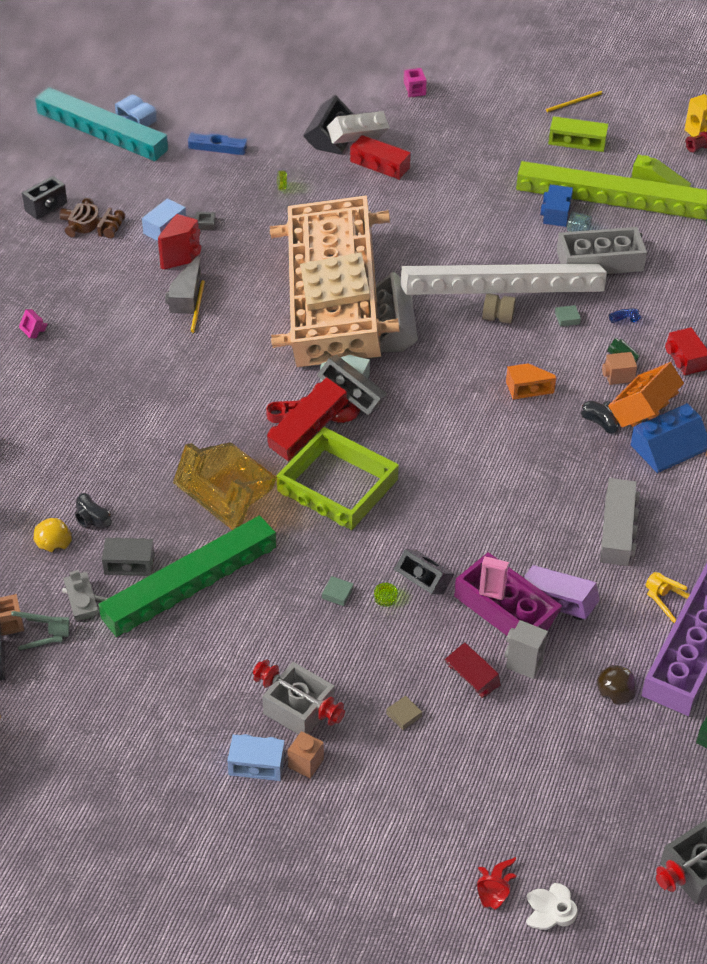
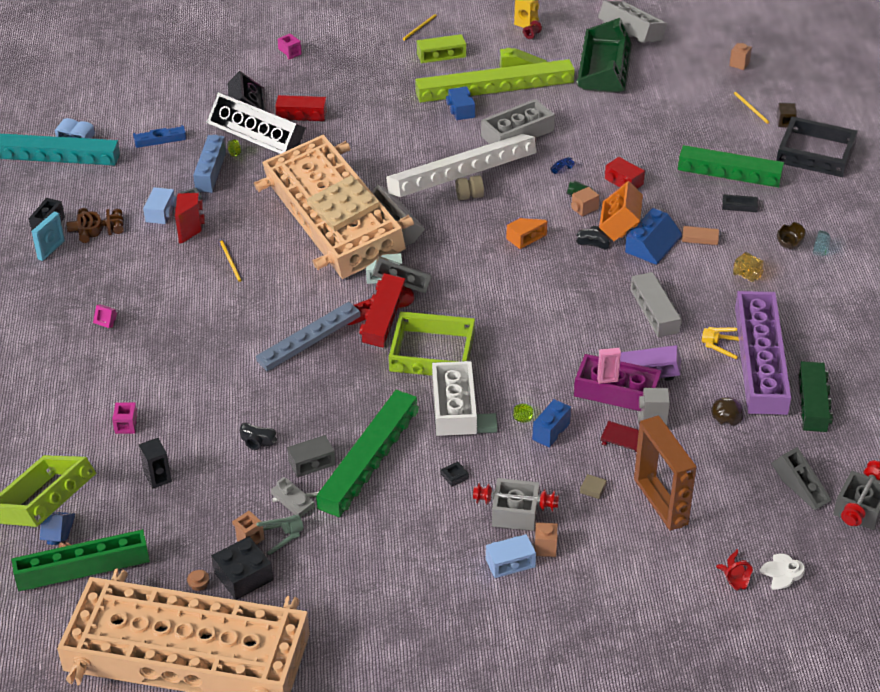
camera: 25 degrees left, 5 degrees down
(31, 217) = (48, 236): none -> medium azure tile
(52, 534) = (236, 463): yellow hair -> none
(184, 289) = (215, 252): flat silver slope -> none
(215, 419) = (307, 336): none -> sand blue plate
(223, 480) = (347, 377): clear yellow windscreen -> none
(244, 190) = (209, 163): none -> medium blue brick
(265, 636) = (454, 474): none -> black tile
(314, 160) = (254, 124): none -> brick
(315, 549) = (454, 398): none -> white brick
(351, 127) = (269, 90): white brick -> none
(404, 618) = (551, 423): none -> blue brick
(424, 571) = (544, 385): black brick -> none
(473, 732) = (653, 439): none -> dark orange window
(567, 315) = (520, 178): sand green tile -> none
(579, 222) = (484, 110): clear light blue brick -> none
(647, 804) = (801, 478): none -> dark grey slope

